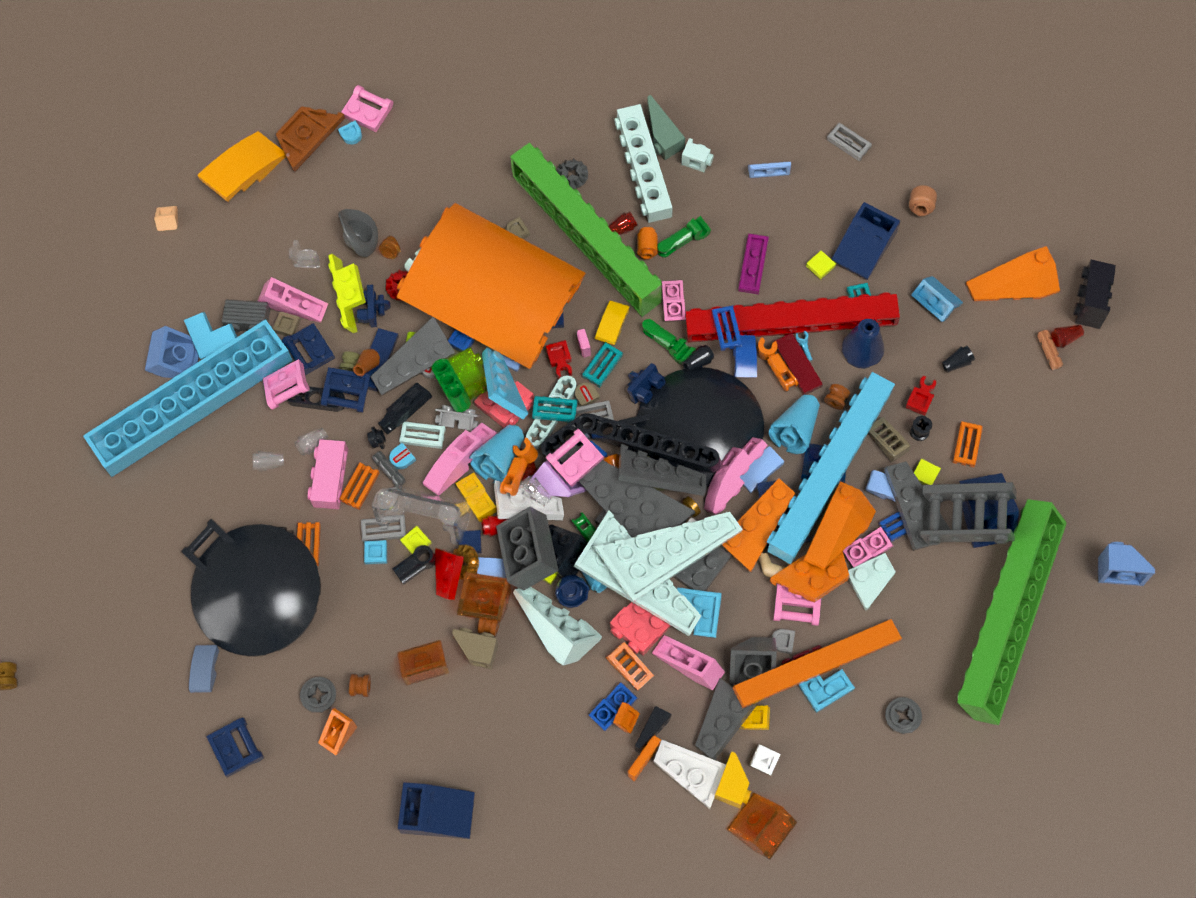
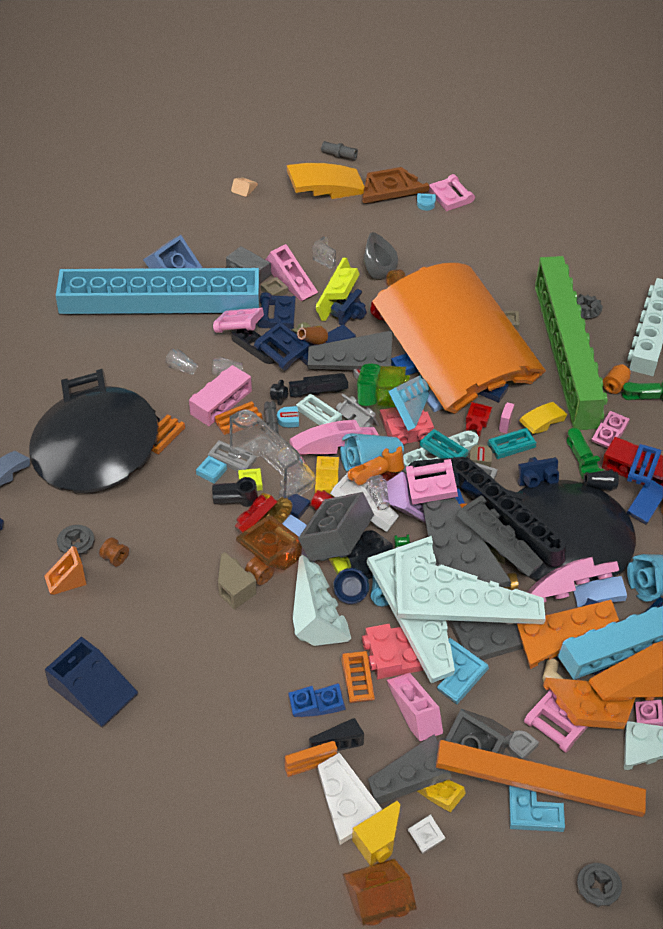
camera: 30 degrees right, 20 degrees down
(204, 338) = (206, 256): medium azure tile -> none
(226, 118) = (339, 150): none -> dark grey pin
(423, 662) = (178, 569): clear orange slope -> none
(623, 224) = (606, 357): clear red cone -> none
(626, 717) = (320, 715): orange tile -> none

